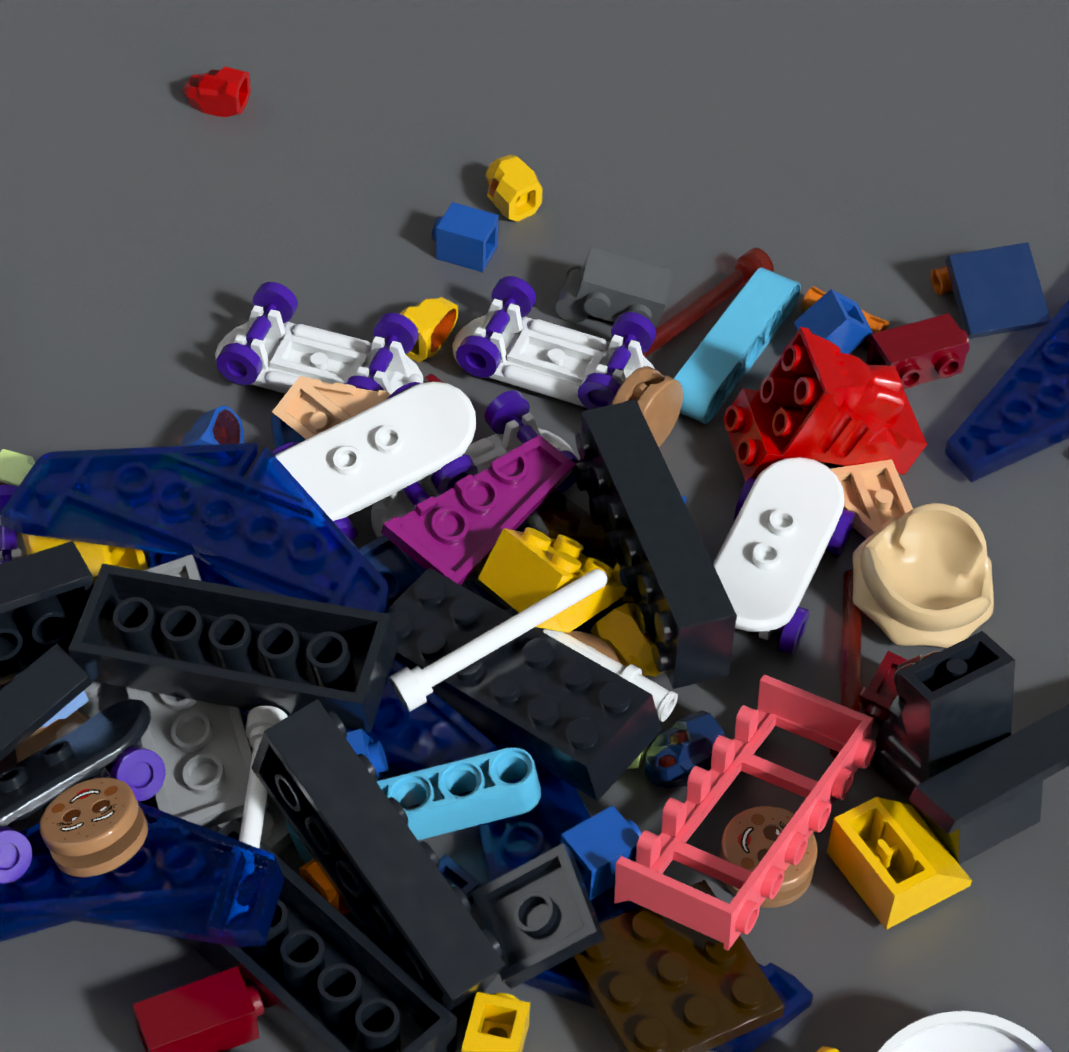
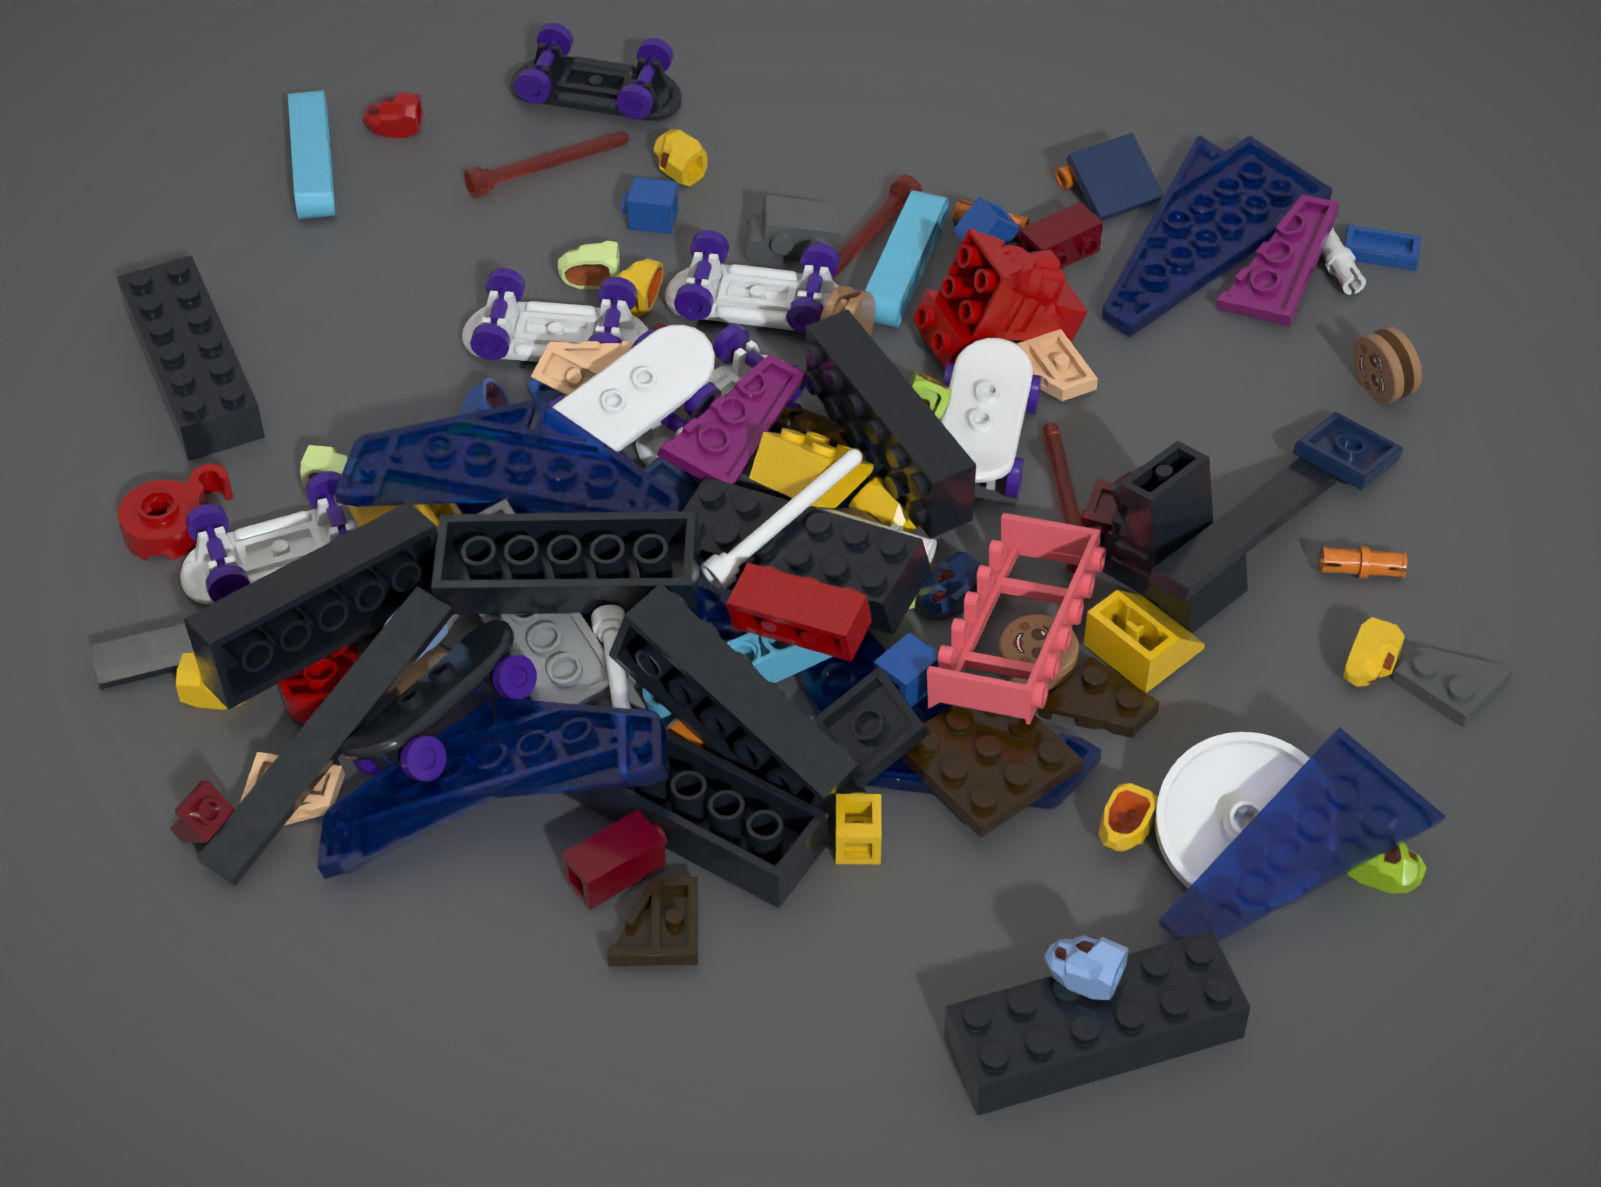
camera: 10 degrees left, 0 degrees up
(94, 827) = (493, 722): medium nougat head -> none
(114, 120) = (311, 155): none -> medium azure beam
(290, 177) = (481, 180): none -> clear red piece
(379, 292) = (589, 264): none -> yellowish green rock
(448, 92) = (598, 84): none -> piece
(486, 756) = (799, 611): none -> red brick
(714, 514) = (932, 391): none -> lime rock
(830, 929) = (1101, 701): none -> dark brown wing
(925, 577) = (1111, 416): tan piece -> none

